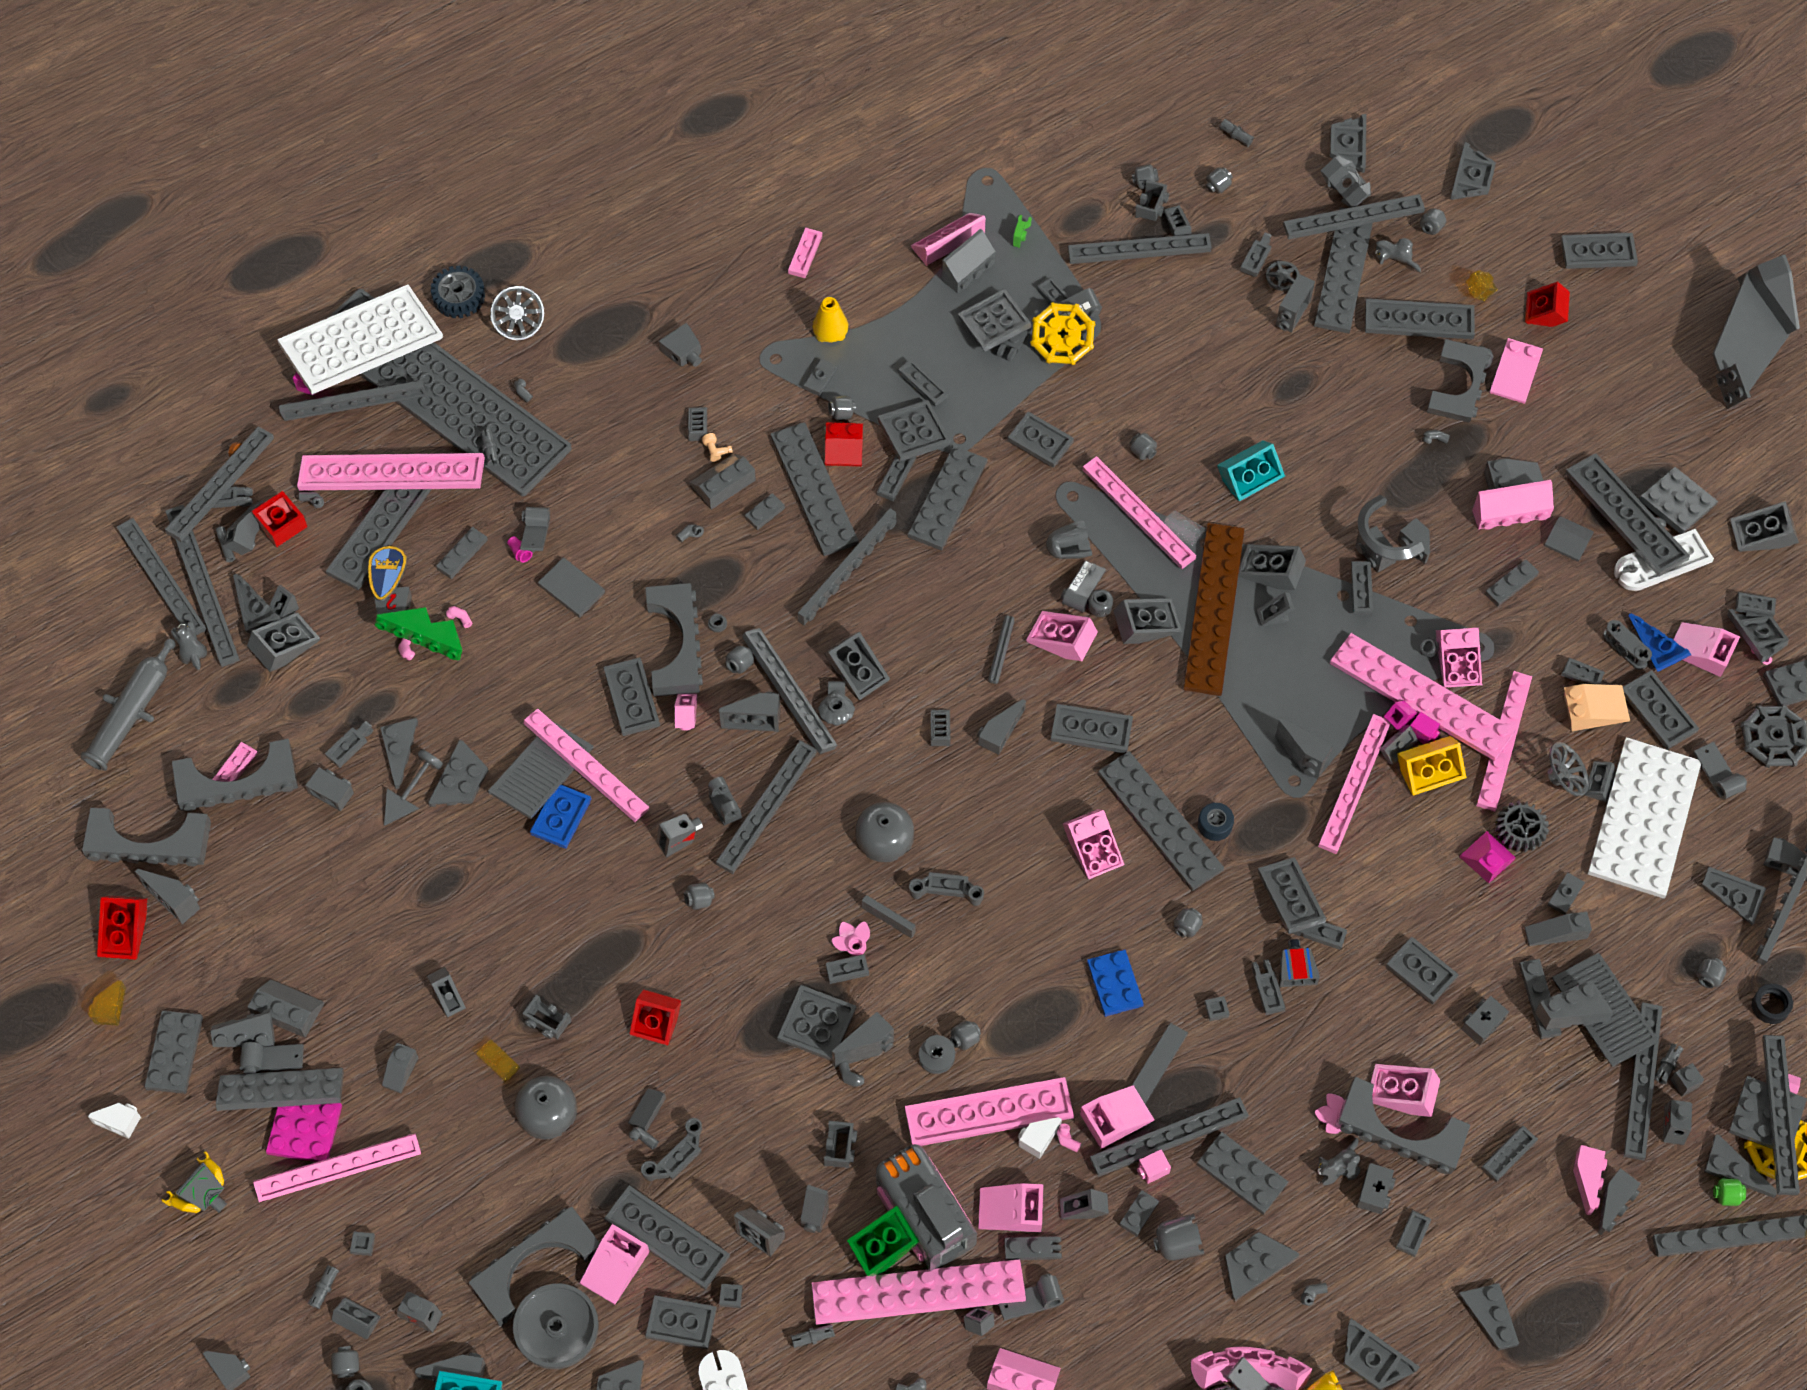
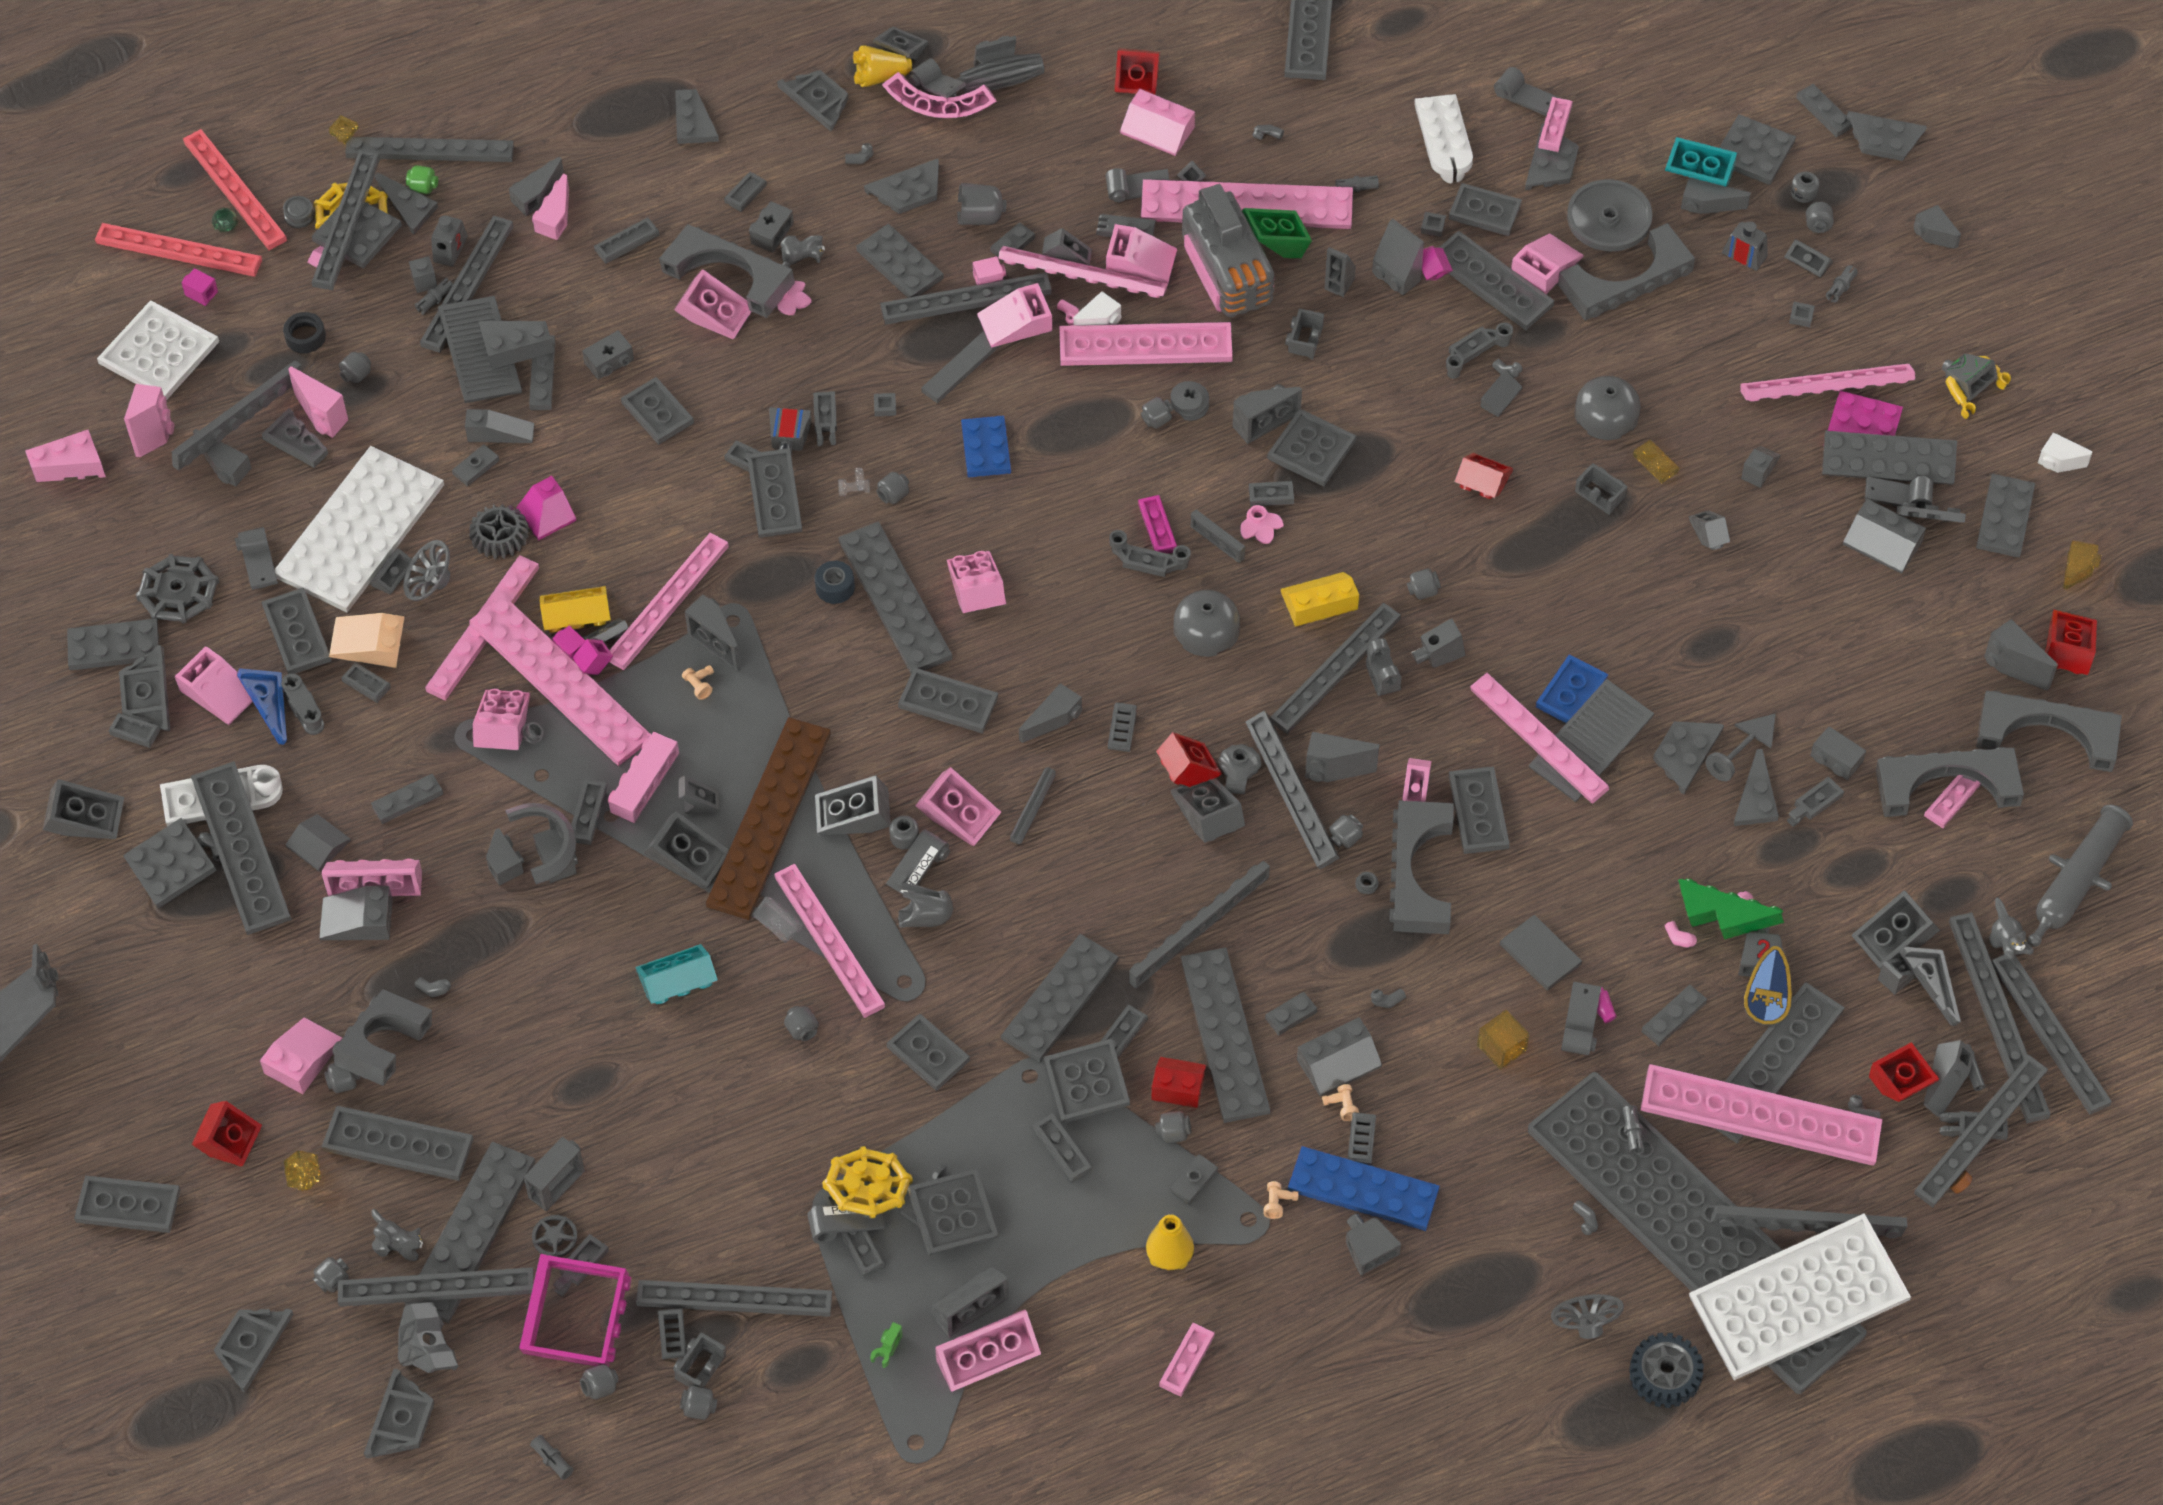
camera: 170 degrees left, 5 degrees down
(595, 505) = (1503, 1039): none -> clear yellow head
(692, 389) = (1363, 1188): none -> blue plate
(724, 1237) = (1435, 263): none -> dark pink brick
(756, 361) = (1273, 1209): none -> light nougat piece
(789, 872) = (1321, 598): none -> yellow slope
(878, 698) = (1187, 760): none -> red slope
(944, 926) = (1157, 524): none -> dark pink tile
(1065, 1179) = (1075, 270): none -> bright pink plate
(1217, 923) = (859, 485): none -> clear piece
(1249, 194) = (537, 1301): none -> dark pink window
(1311, 717) = (702, 690): none -> light nougat piece
(1325, 622) = (643, 777): none -> bright pink brick
(1728, 919) = (321, 403): none -> bright pink slope

